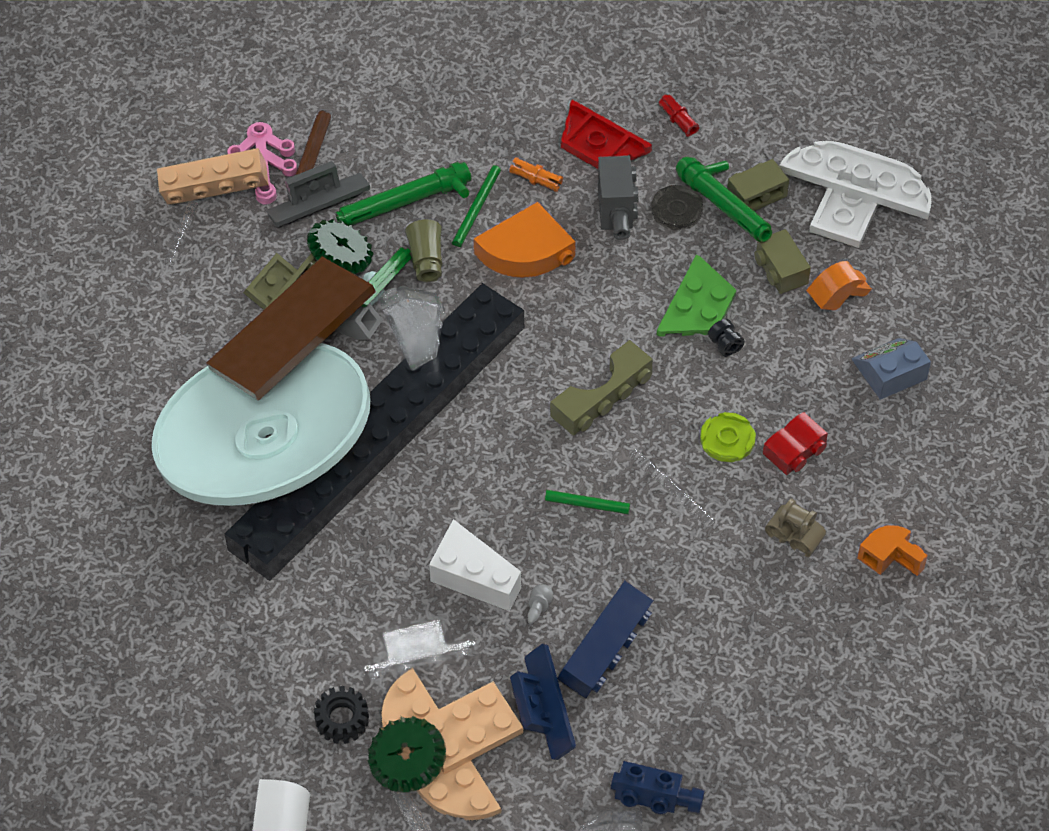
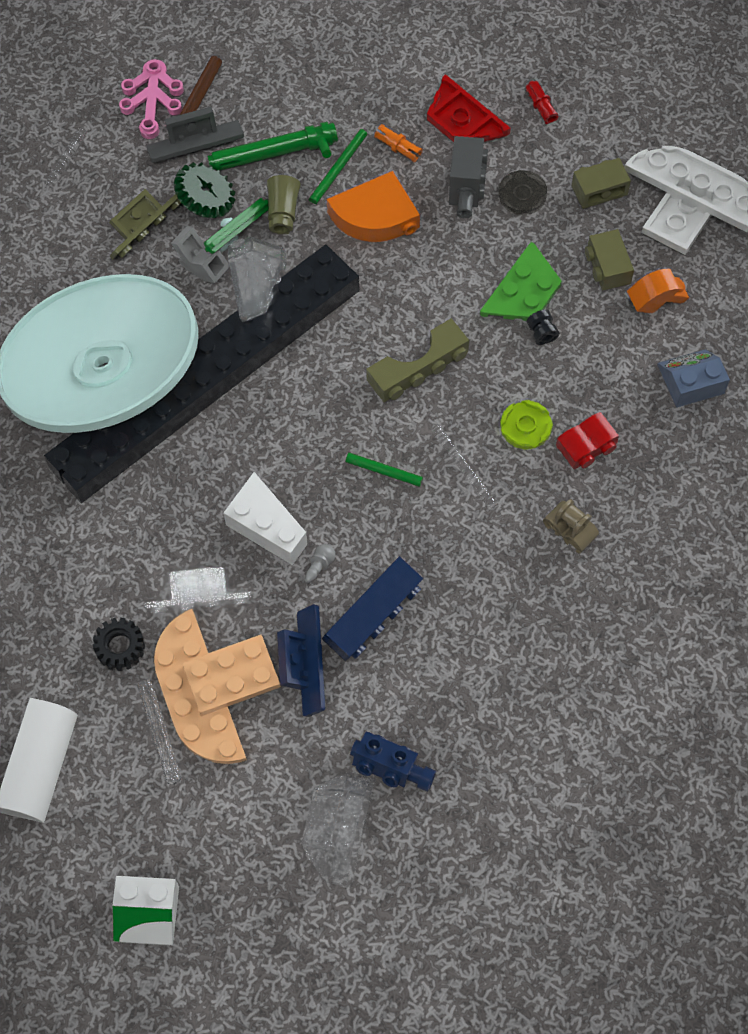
camera: 10 degrees right, 10 degrees up
(212, 176) = (101, 107): light nougat brick -> none
(290, 328) = (141, 264): reddish brown tile -> none
(423, 763) = (179, 707): dark green gear -> none
(701, 180) = (549, 168): green cylinder -> none
(891, 544) = (656, 554): orange brick -> none

